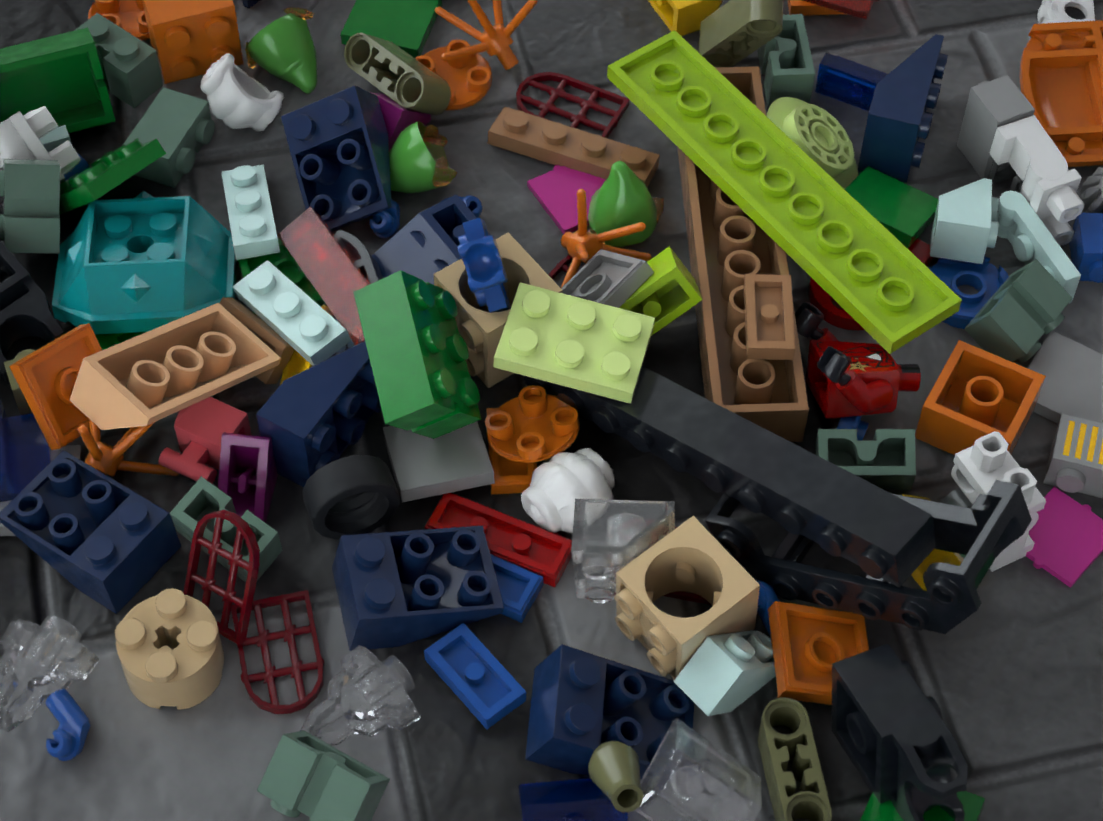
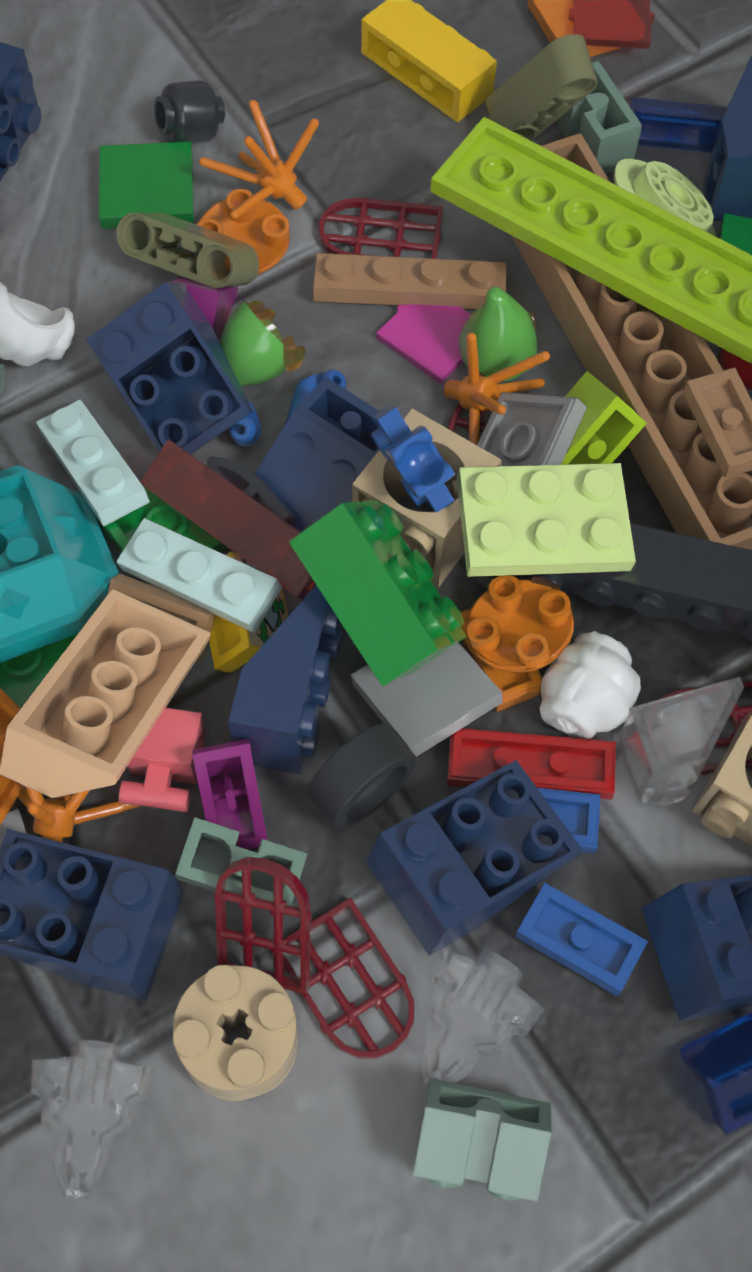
camera: 20 degrees left, 10 degrees up
(73, 726) = (158, 1166): blue arm -> none
(286, 49) = (51, 256): bright green hat -> none

